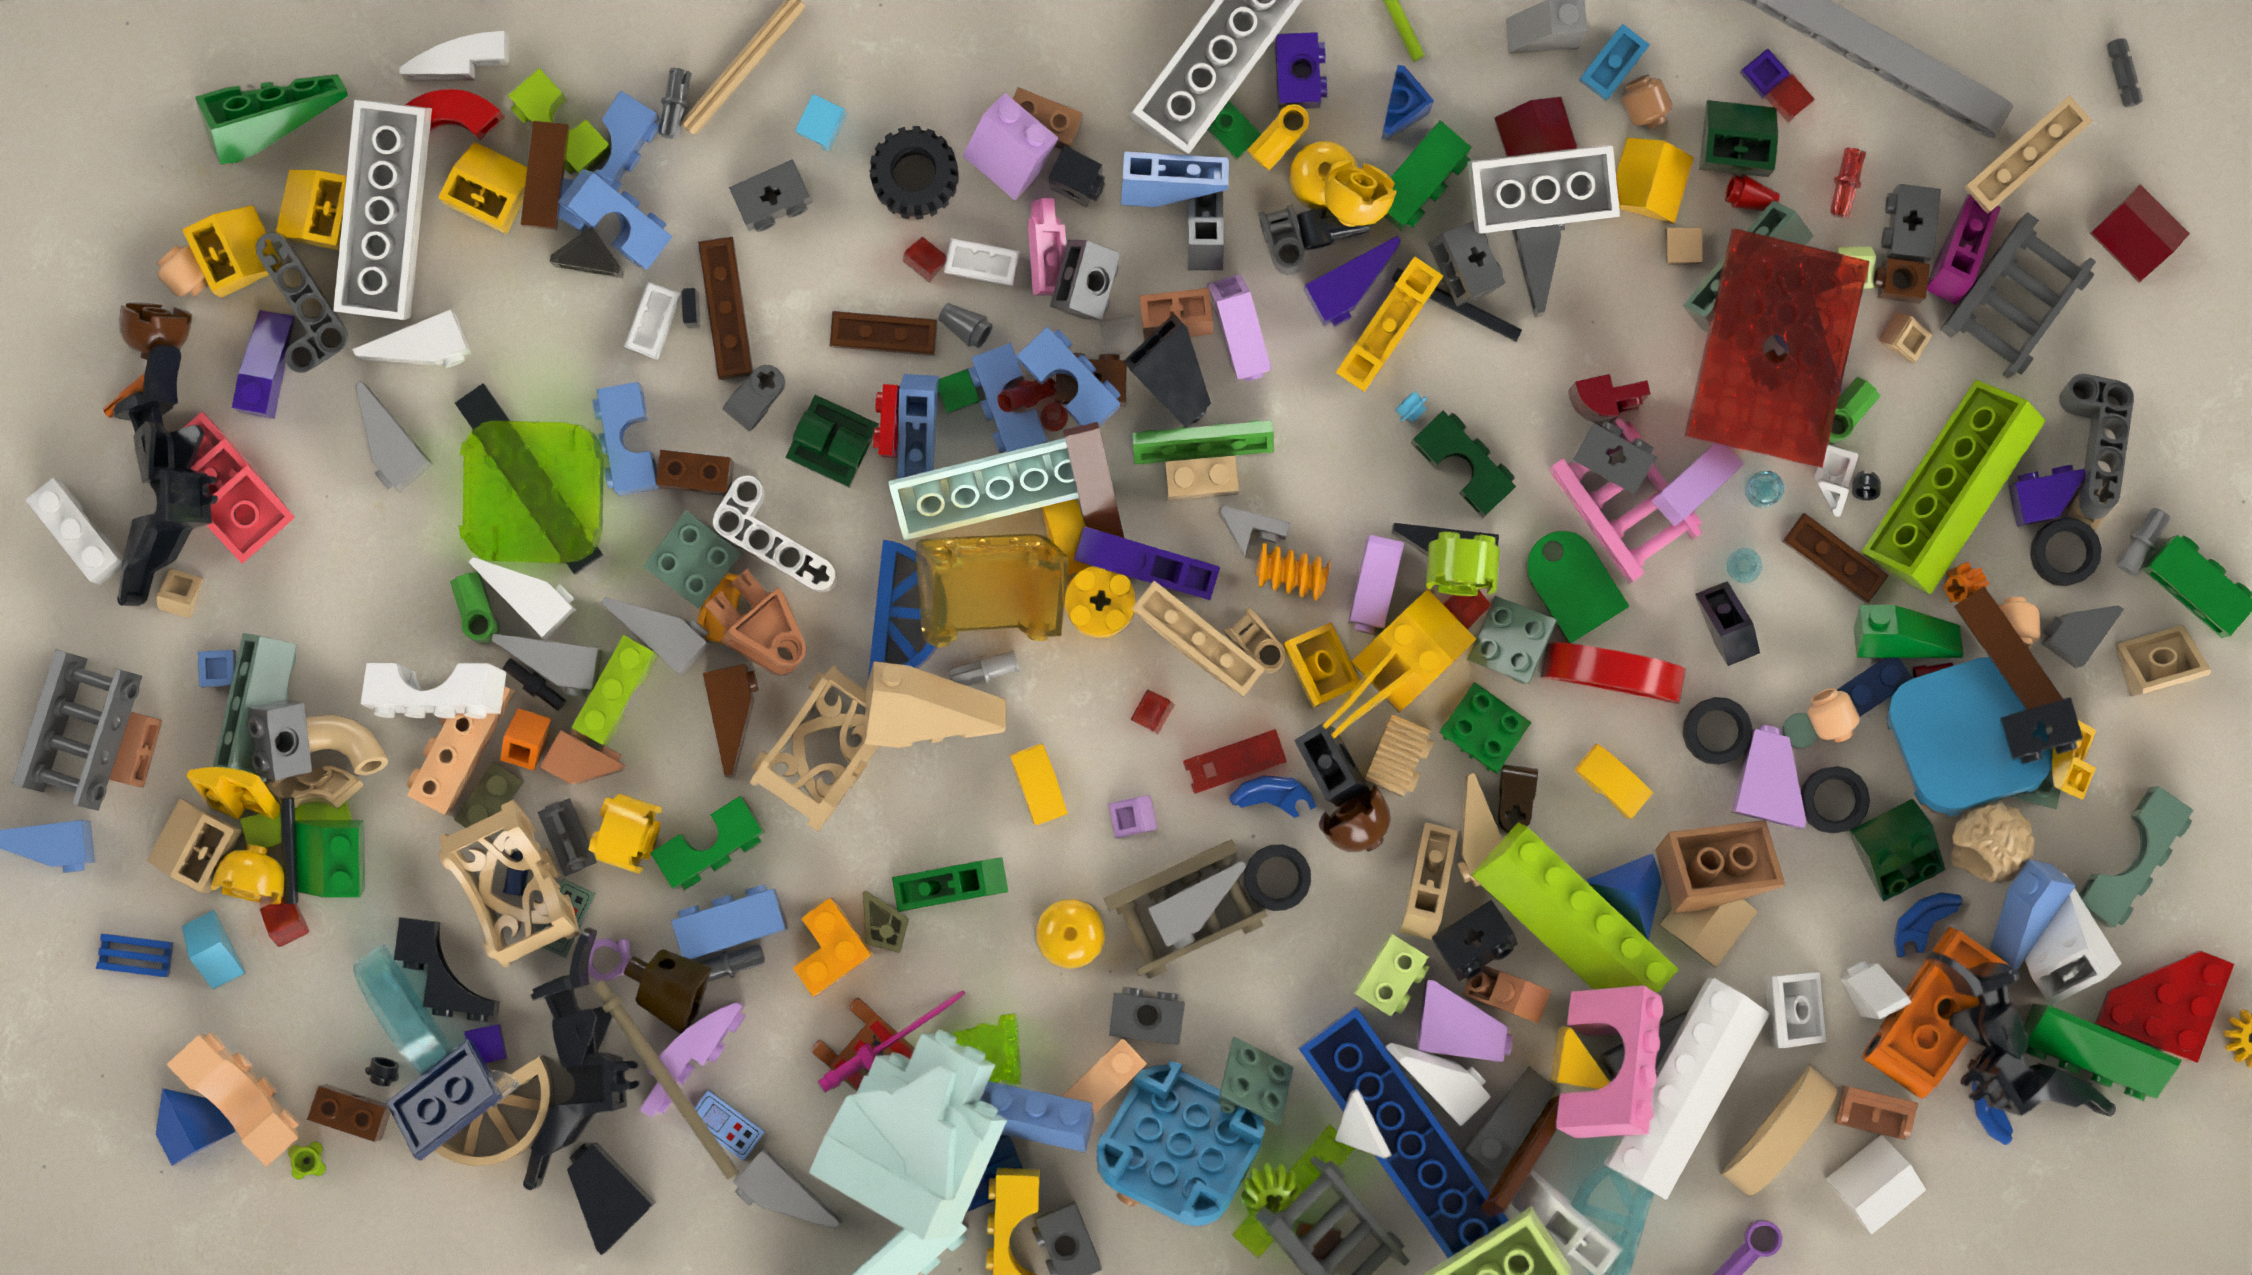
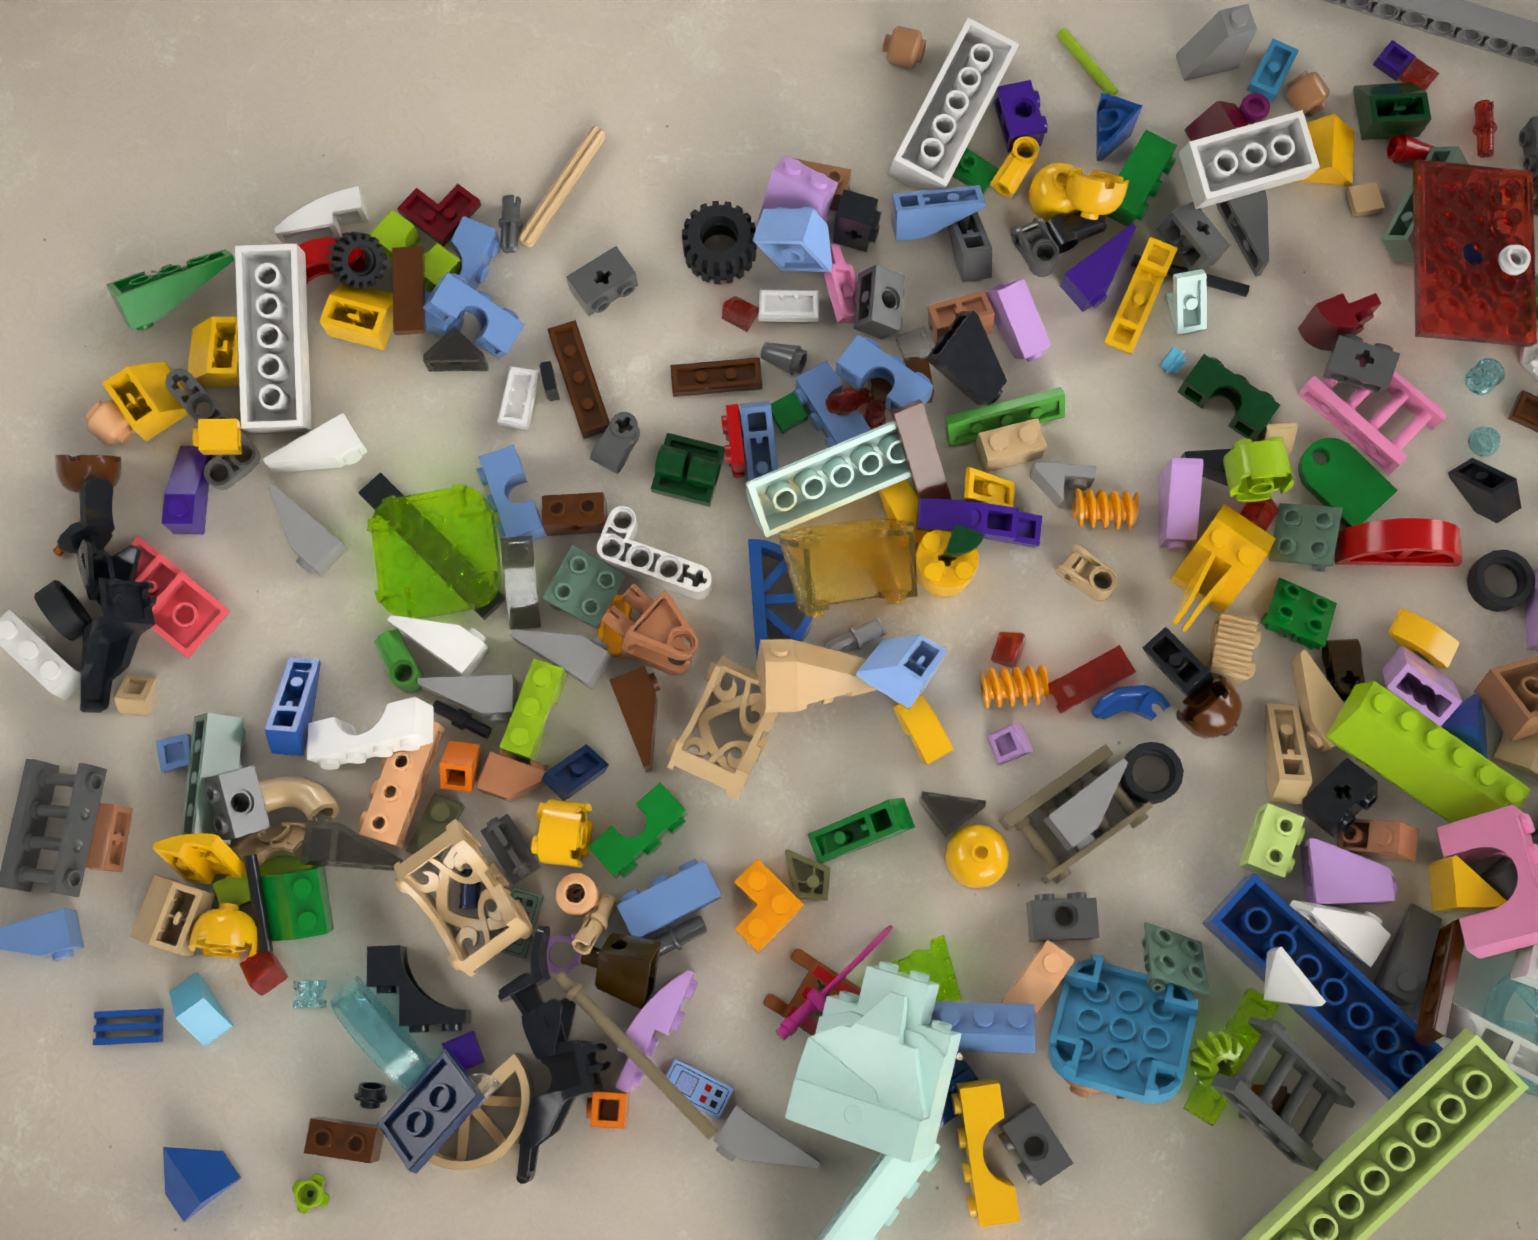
camera: 10 degrees left, 10 degrees down
(112, 487) = (63, 610): none -> black tyre
(238, 1094) = (235, 1139): light nougat brick -> none
(307, 321) = (218, 436): none -> yellow brick
(331, 956) = (309, 994): none -> clear light blue wheel
(352, 638) = (293, 707): none -> blue slope
(383, 805) = (339, 846): none -> clear smoke slope
(504, 138) = (340, 254): none -> black tyre
(598, 83) = (440, 219): none -> dark red plate
(606, 1195) = (596, 1176): black slope -> none
(619, 898) = (566, 893): none -> light nougat head
(622, 541) = (520, 581): none -> clear smoke slope
(629, 1130) = (608, 1109): none -> orange brick
(645, 935) = (594, 924): none -> tan pin
(649, 768) = (575, 772): none -> dark blue plate
(821, 121) = (635, 215): medium azure panel -> none
(998, 190) = (794, 239): none -> light blue slope
(1026, 714) = (902, 667): none -> light blue slope
(1049, 881) = (950, 811): none -> clear smoke slope
(1118, 588) = (963, 541): none -> dark green tile
(1146, 756) = (1014, 686): none -> light orange piece
(1164, 529) = (988, 488): none -> yellow slope
(1197, 639) = (1039, 576): tan window -> none
(1321, 664) = (1145, 585): yellow slope -> none
(1443, 341) = (1188, 301): none -> light aqua slope
(1509, 522) = (1284, 430): none -> tan slope
(1582, 106) = (1255, 108): none -> magenta tile
(1588, 836) = (1421, 685): none -> lavender brick
(1697, 483) = (1430, 378): lavender slope -> none
(1826, 367) = (1520, 256): none -> white plate

